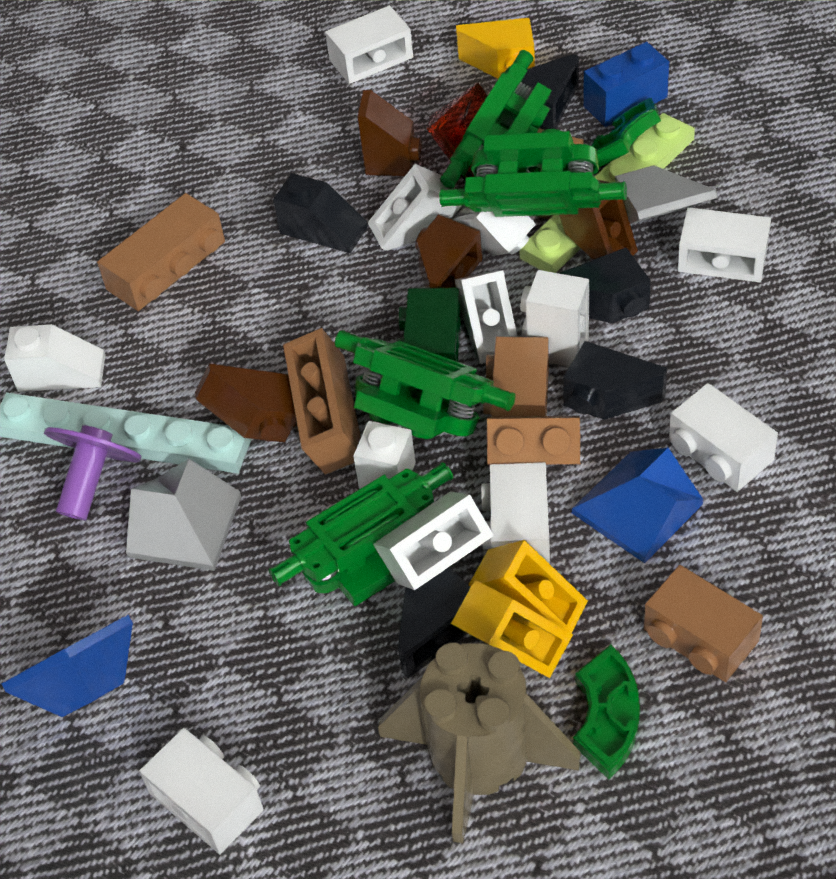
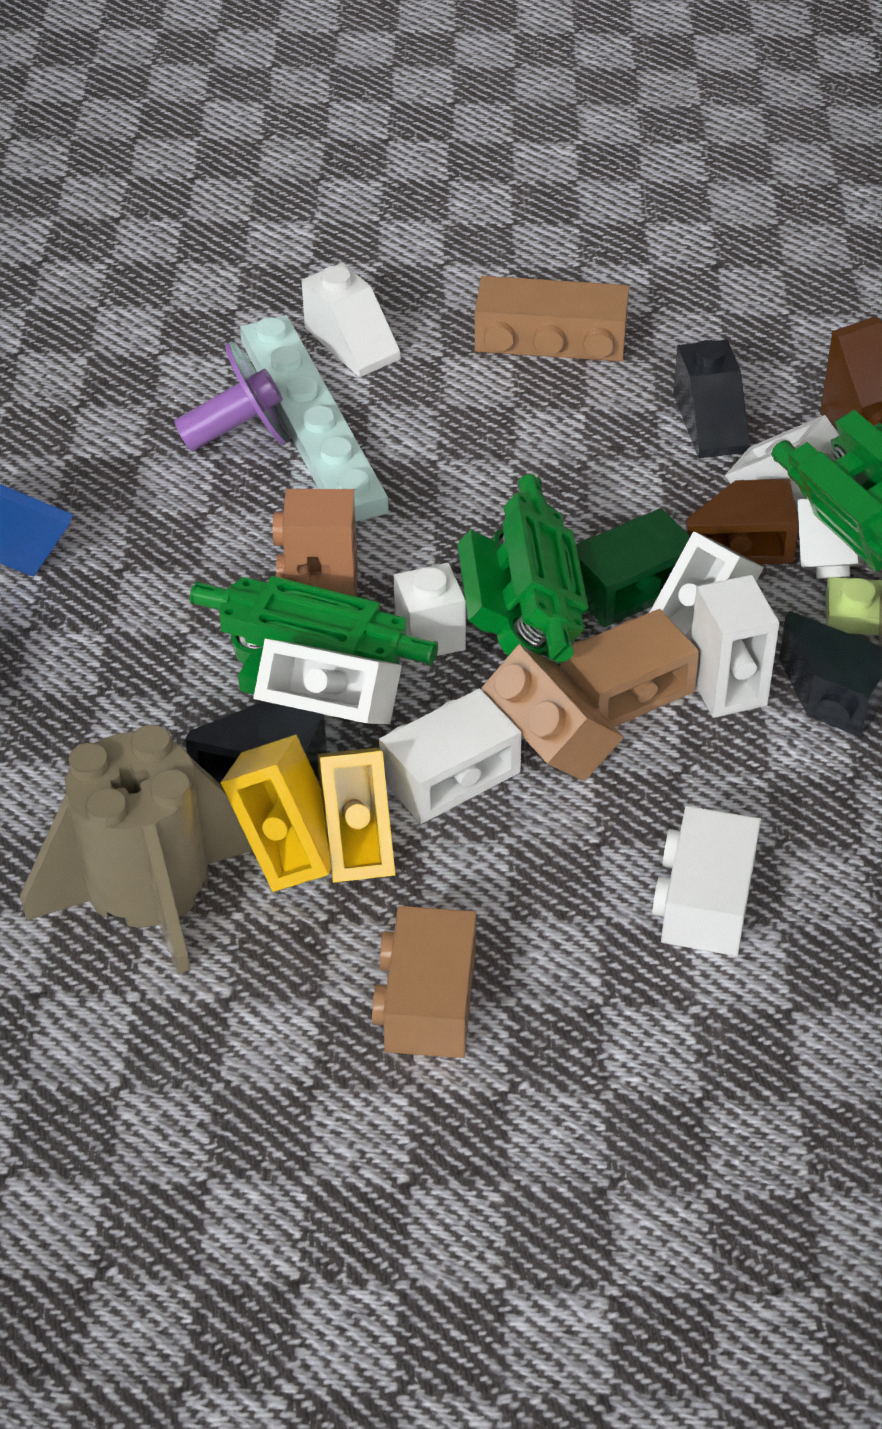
camera: 50 degrees right, 5 degrees down
(181, 517) = (233, 506): light grey slope -> none
(249, 401) = (410, 473): reddish brown slope -> none
(286, 485) = (318, 539): none -> nougat brick
(322, 400) = (434, 525): medium nougat brick -> none
(611, 382) = (698, 743): black slope -> none
(611, 713) = (266, 962): green tile -> none
(641, 502) = (560, 860): blue slope -> none

